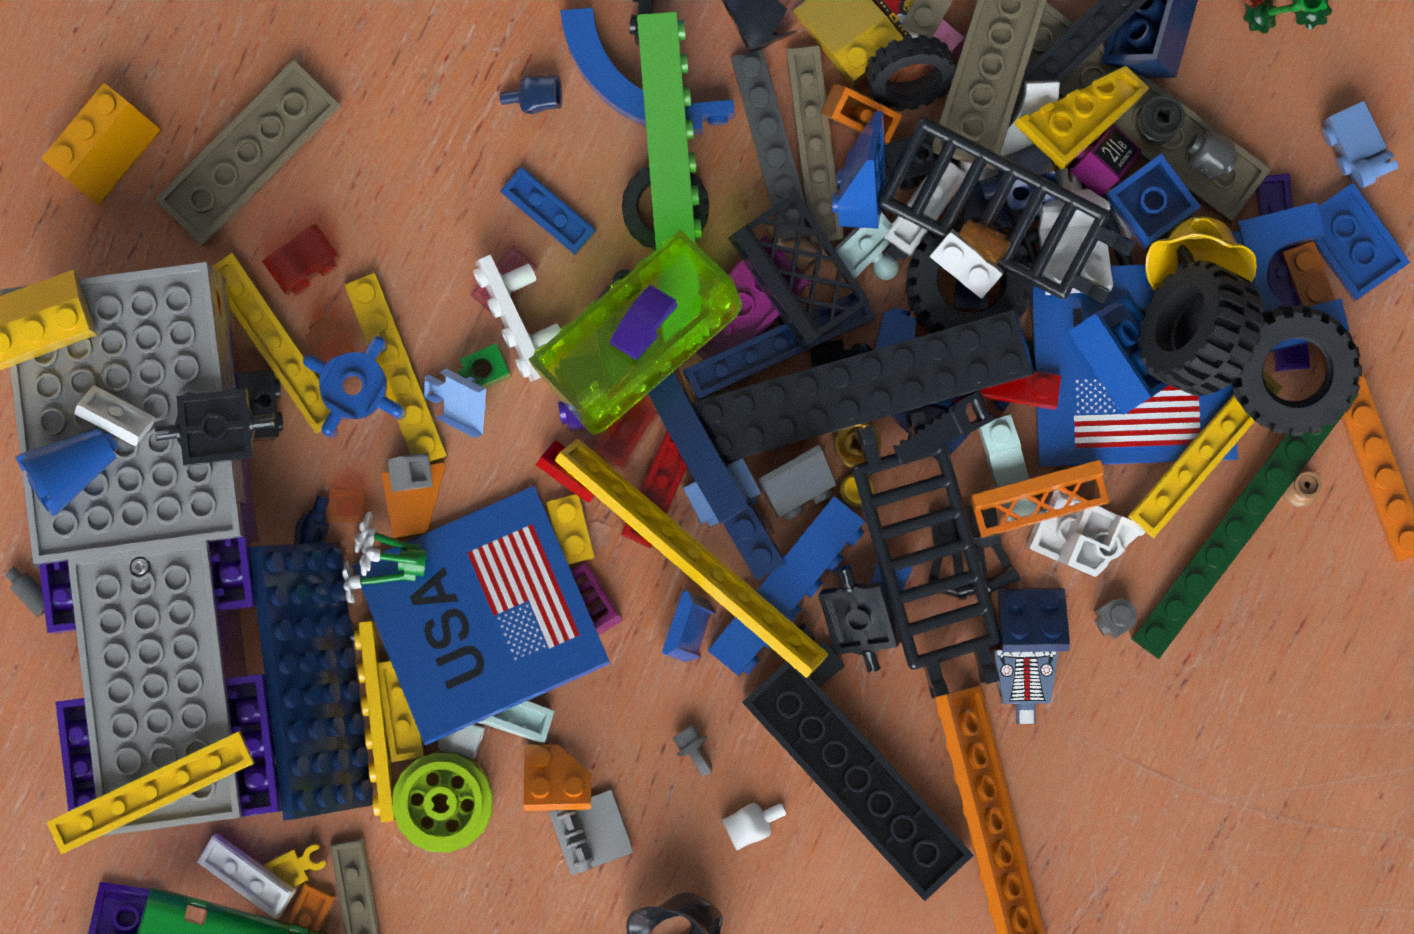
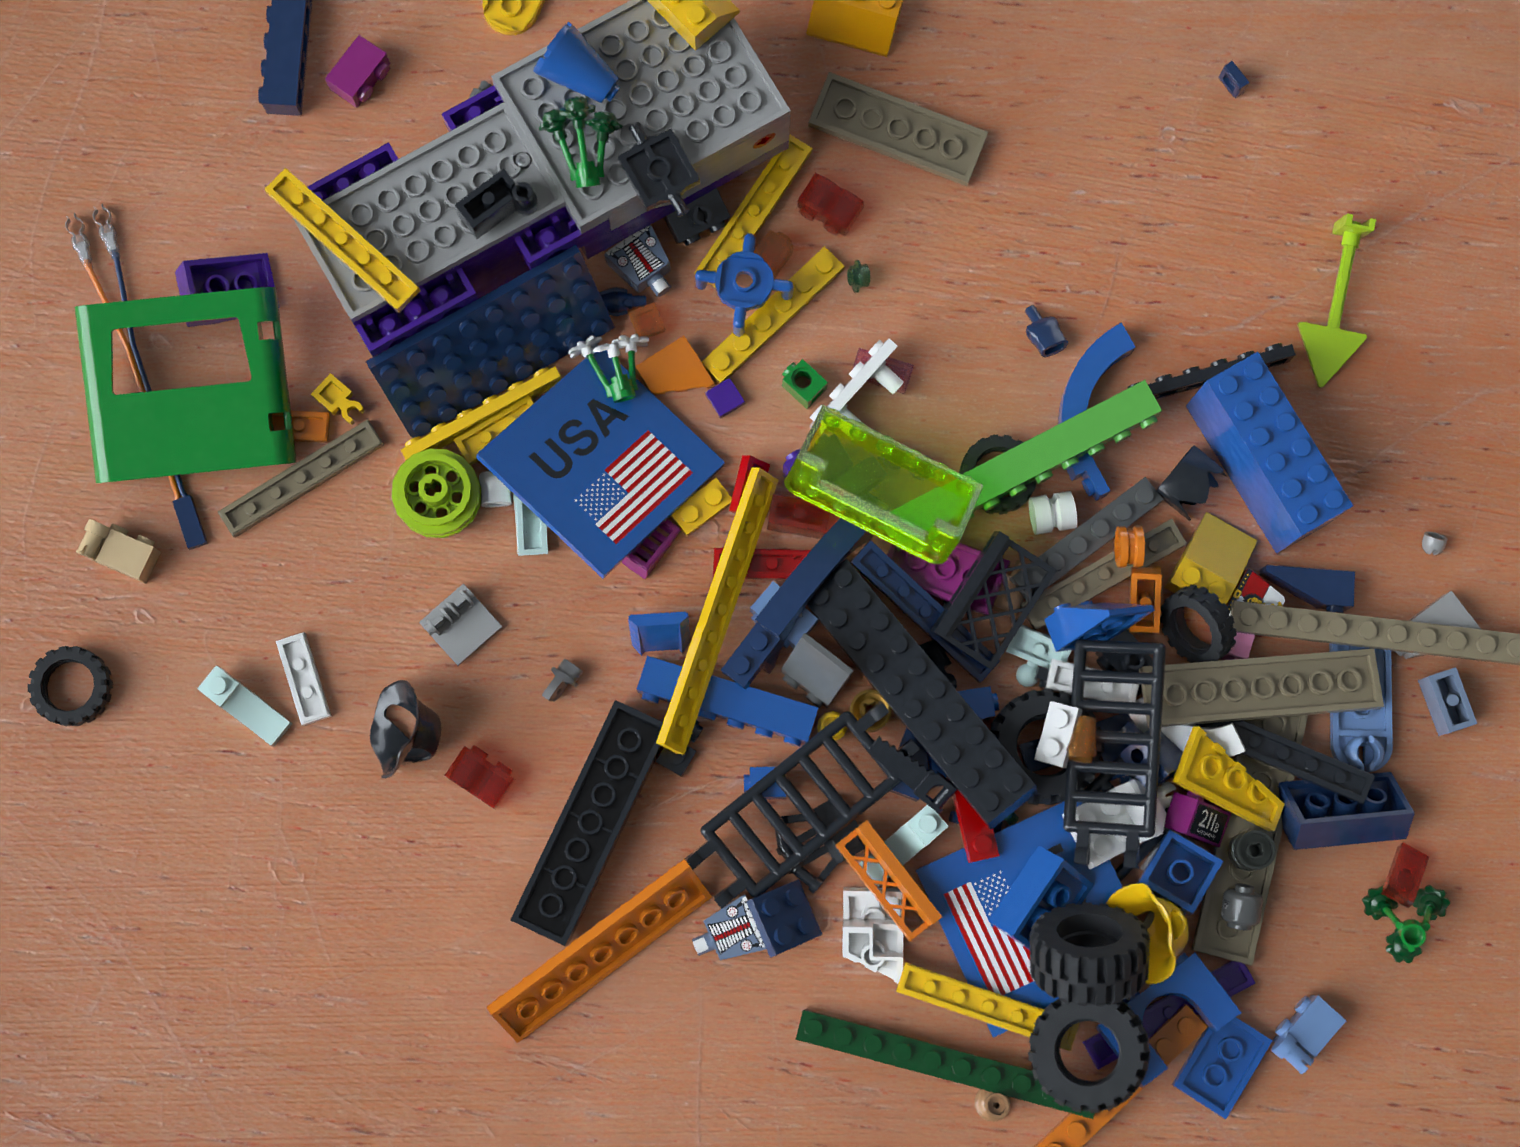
camera: 65 degrees right, 5 degrees down
(114, 415) = (635, 87): white plate -> none
(124, 486) = (602, 123): none -> dark green plant
(180, 614) = (495, 202): none -> black hinge
(246, 876) = (315, 363): white tile -> none
(281, 485) = (641, 262): none -> torso
(392, 262) = (858, 276): none -> clear green plate
(410, 472) = (694, 358): light grey slope -> none
(462, 401) = (768, 376): light blue piece -> none
(464, 457) = (725, 398): none -> dark purple tile
(548, 211) = (954, 383): blue tile -> none
(554, 780) = (490, 575): orange plate -> none
(641, 321) = (889, 484): dark purple slope -> none
(730, 168) = (1053, 512): none -> white wheel
(751, 824) = (519, 752): white piece -> none
(760, 874) = (480, 777): none -> clear red brick
(800, 106) = (1129, 546): none -> orange wheel
(859, 618) = (725, 770): black plate -> none
(1115, 617) = (815, 987): flat silver plate -> none

